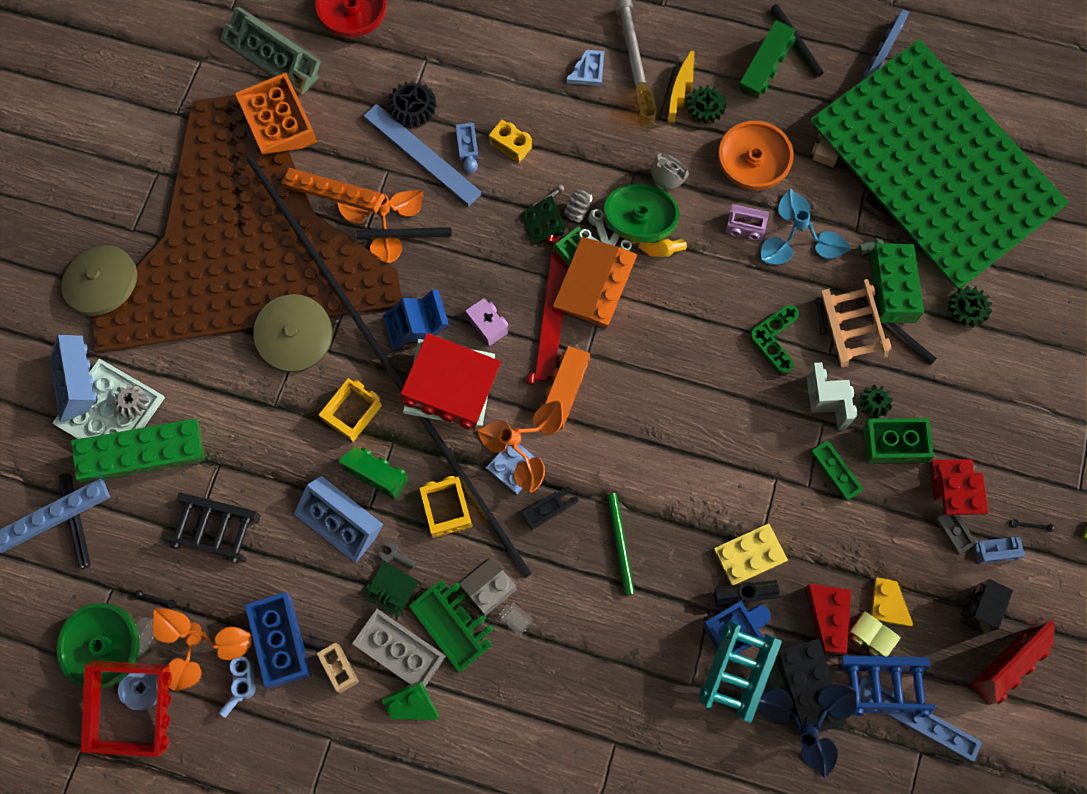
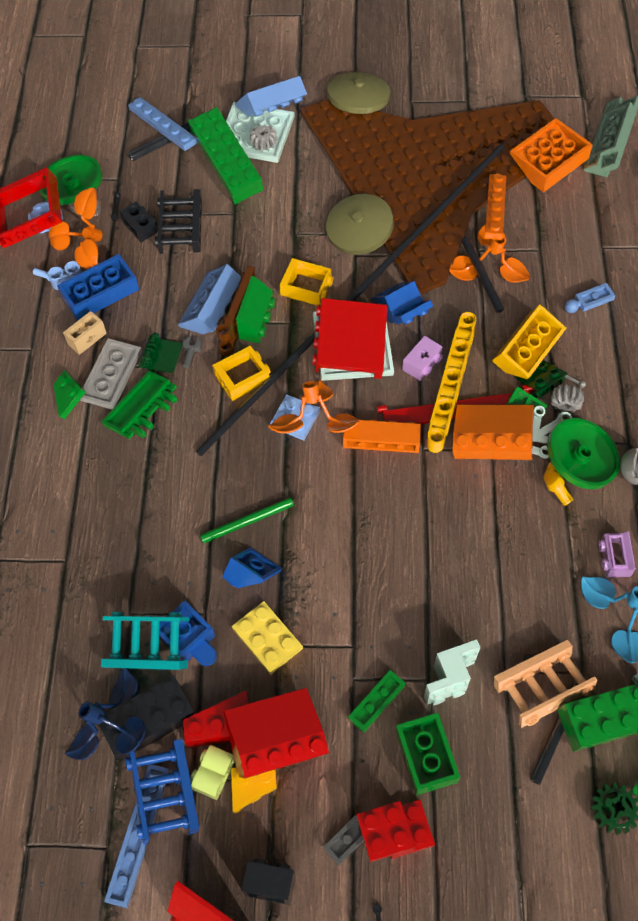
camera: 75 degrees right, 10 degrees down
(195, 580) = (138, 221): none -> black brick
(386, 500) = (229, 322): none -> reddish brown hinge
(415, 110) = (611, 246): black gear -> none
(422, 155) = (568, 264): medium blue tile -> none
(488, 586) = (178, 424): light grey slope -> none
(504, 217) = (529, 343): none -> yellow slope
(508, 143) = (610, 330): yellow brick -> none
(515, 619) = (155, 451): clear brick -> none
(536, 308) = (451, 382): none -> yellow beam
(547, 508) = (263, 452): black hinge -> none
(680, 551) = (249, 569): none -> blue slope
(733, 594) = (231, 649): black piece -> none
(769, 334) = (502, 604): green beam -> none
(858, 567) = (275, 733): none -> red slope
(880, 396) = (462, 731): dark green gear -> none
(999, 550) = (339, 892): medium blue hinge -> none

